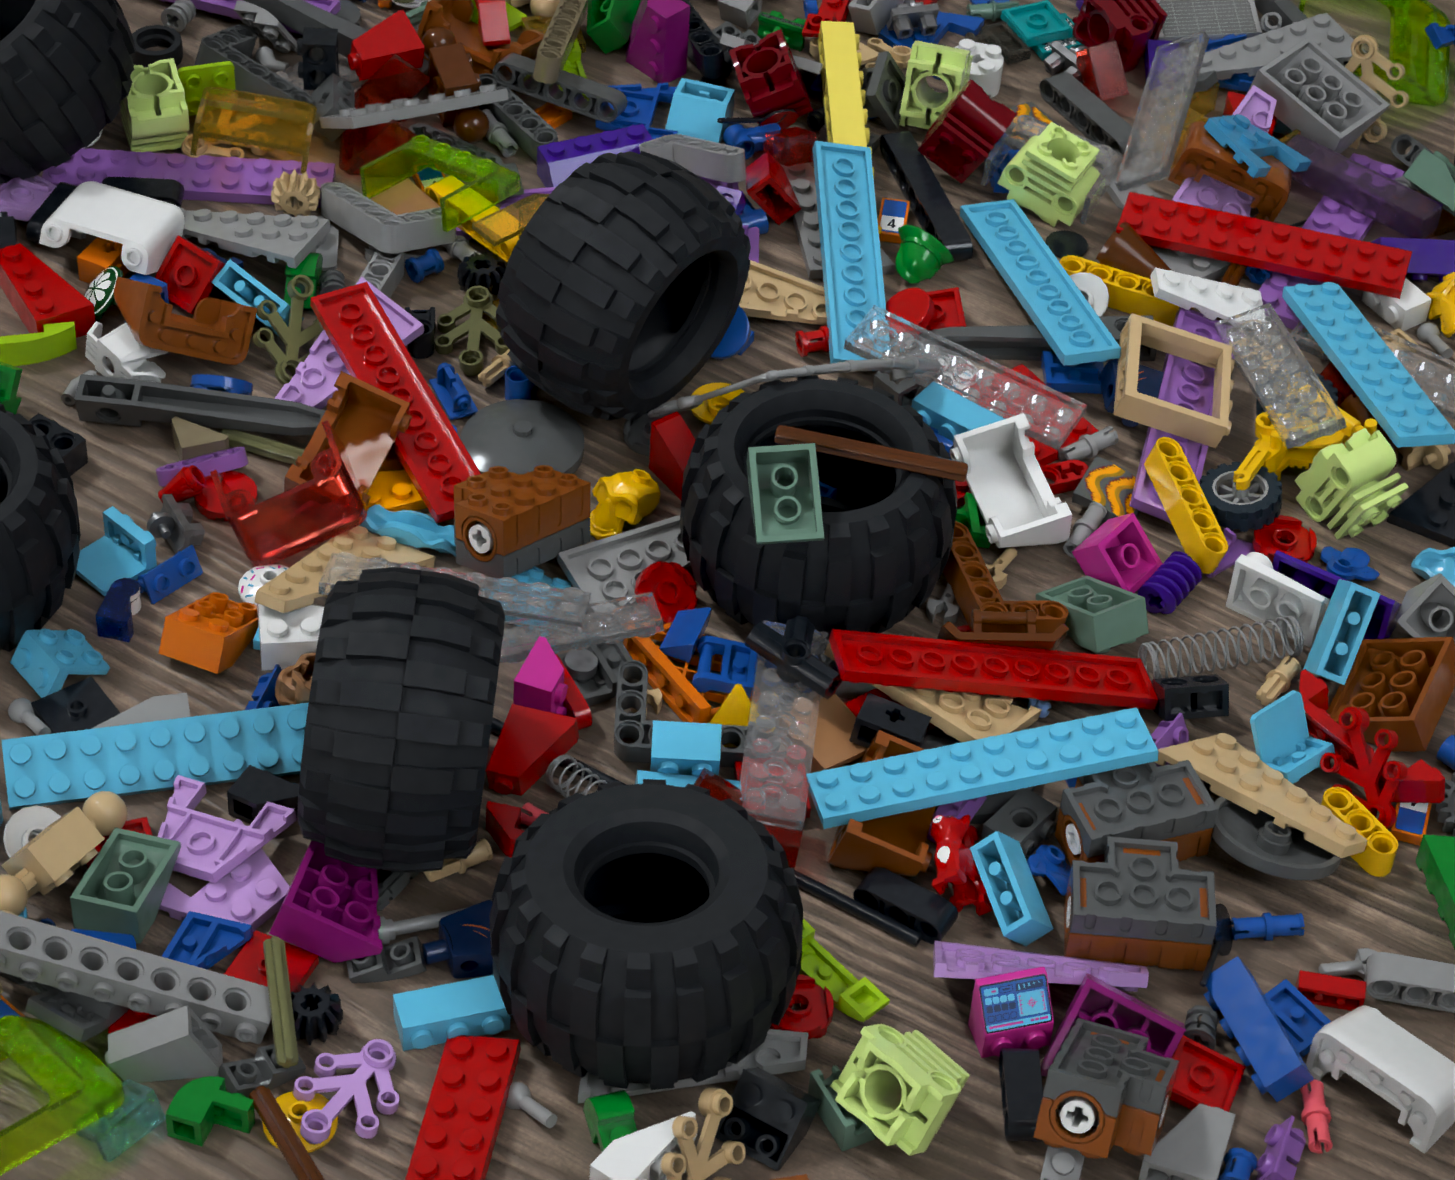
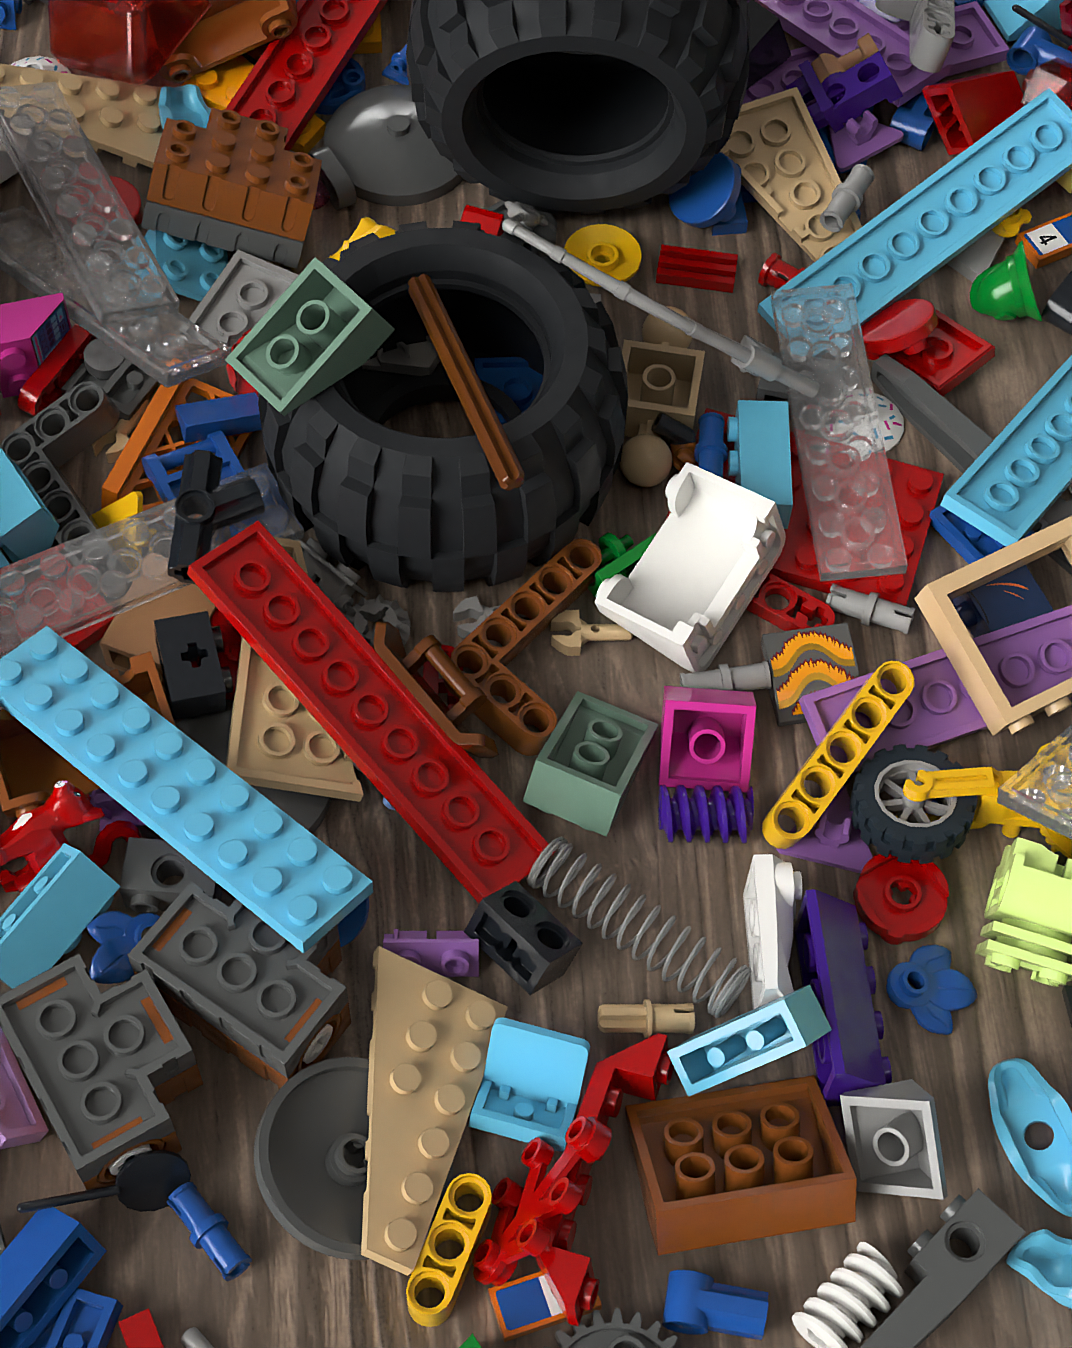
camera: 55 degrees right, 15 degrees up
(769, 362) = (697, 263): none -> red tile
(797, 273) = (847, 198): none -> light grey pin

